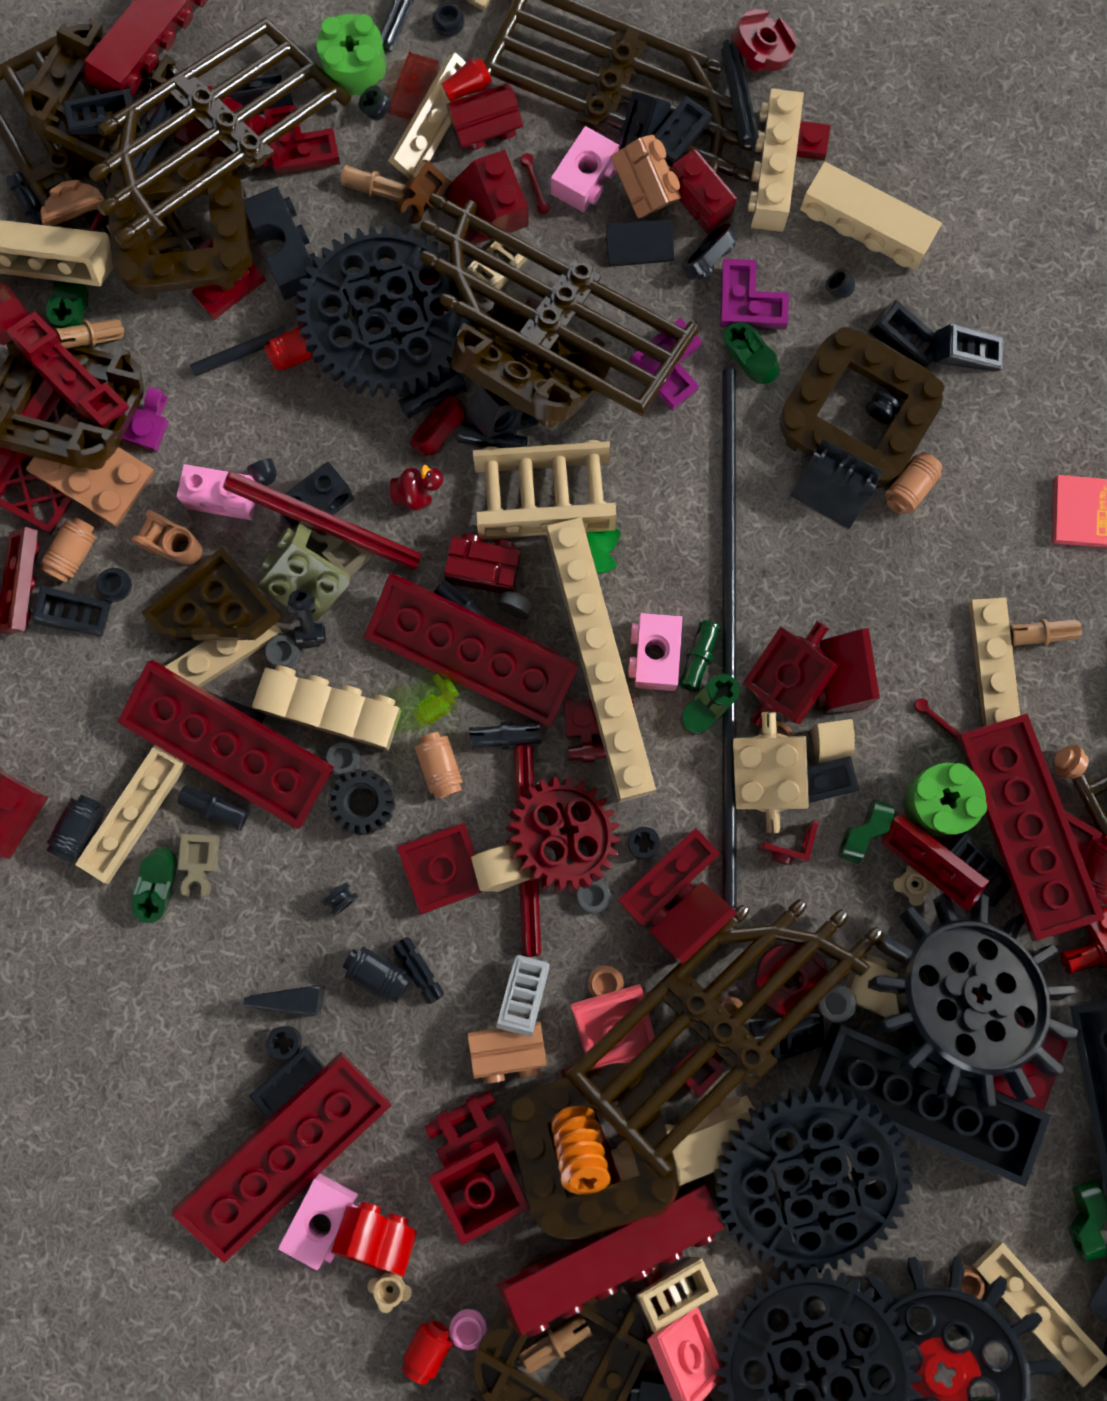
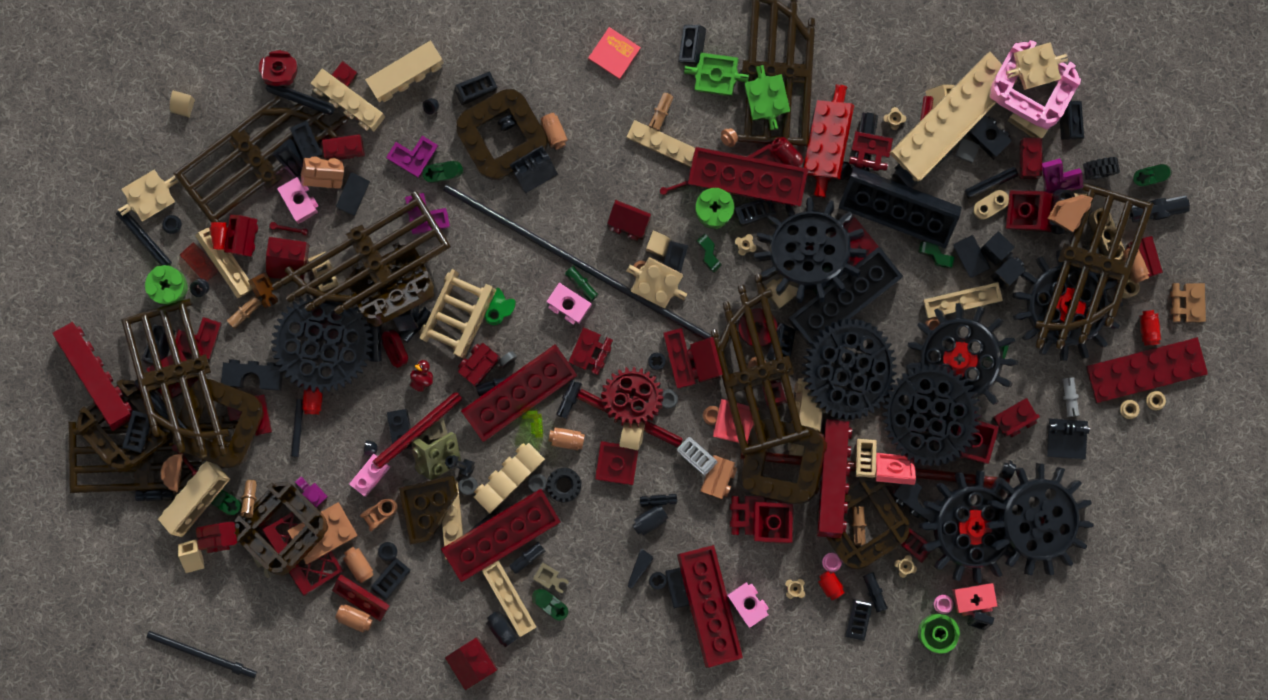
camera: 60 degrees left, 5 degrees up
(65, 373) = (271, 518): dark red slope -> none
(340, 899) = (605, 519): black bush -> none
(374, 1239) = (769, 581): red brick -> none
(580, 1151) = (779, 466): orange piece -> none
(600, 660) = (558, 333): tan brick -> none
(715, 245) = (377, 161): black plate -> none
(720, 691) = (604, 284): dark green piece -> none
(787, 856) = (699, 298): dark red bracket -> none
(790, 674) = (615, 246): dark red plate -> none
(838, 1004) = (779, 313): dark grey tile -> none
(934, 862) = (739, 231): dark red plate -> none
(948, 348) = (494, 72): black slope -> none

